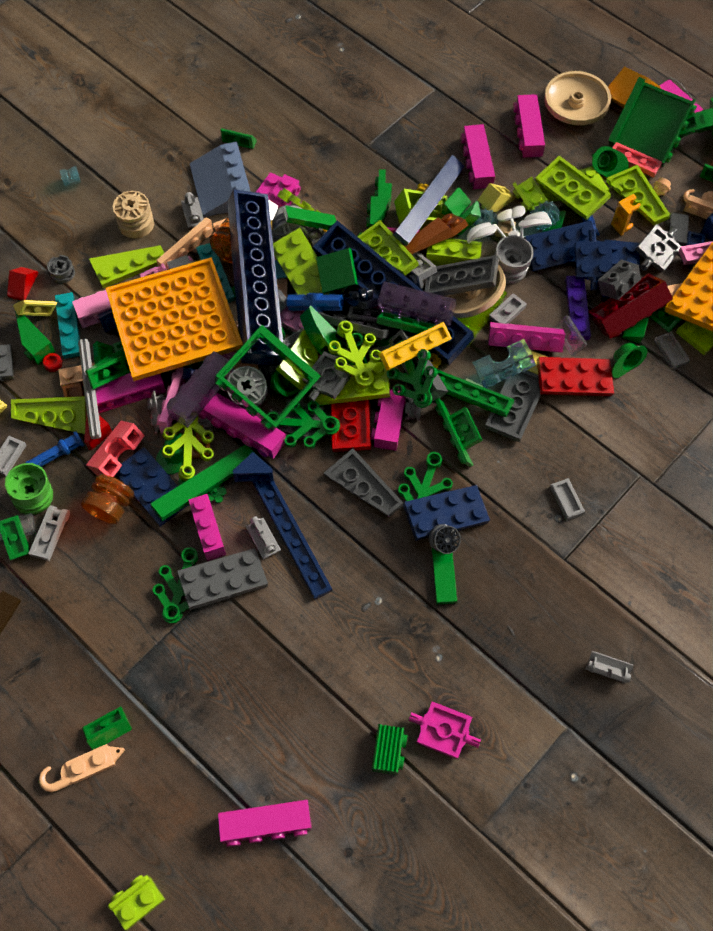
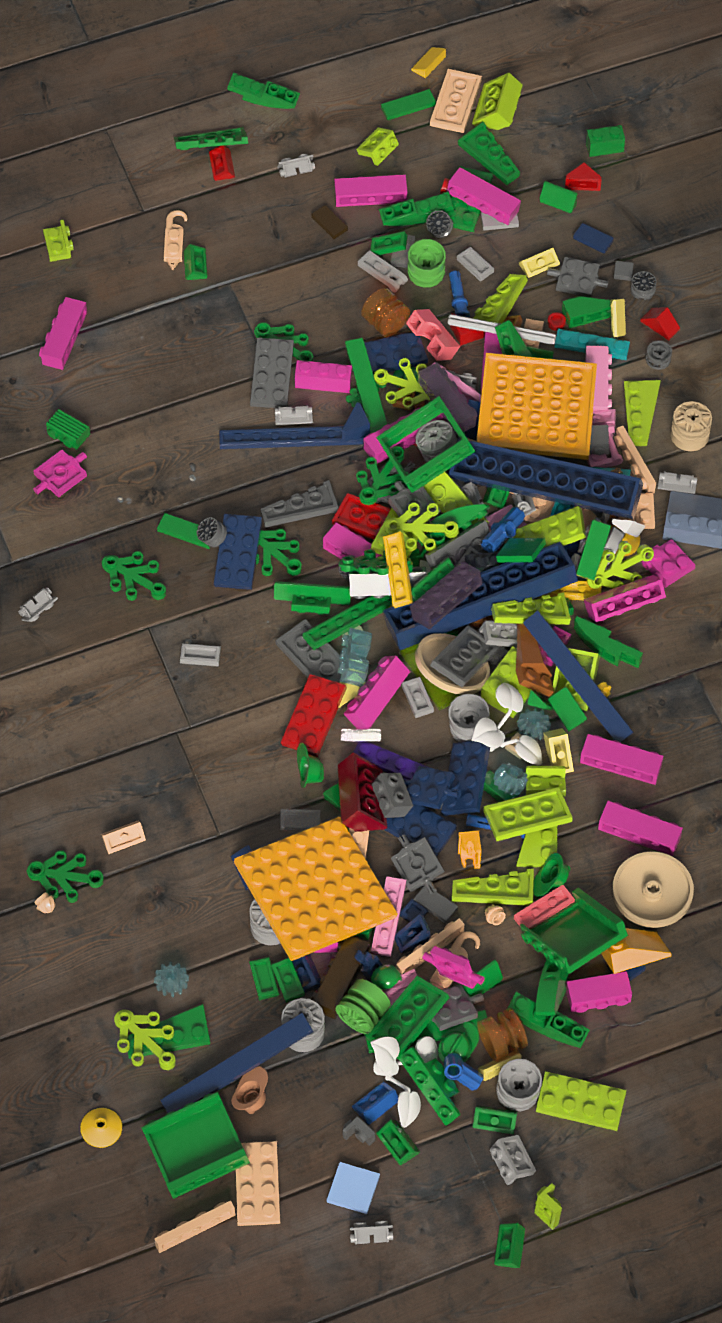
camera: 115 degrees right, 5 degrees down
(331, 201) = (624, 598): none -> dark pink brick
(521, 599) = (132, 574): none -> green plant

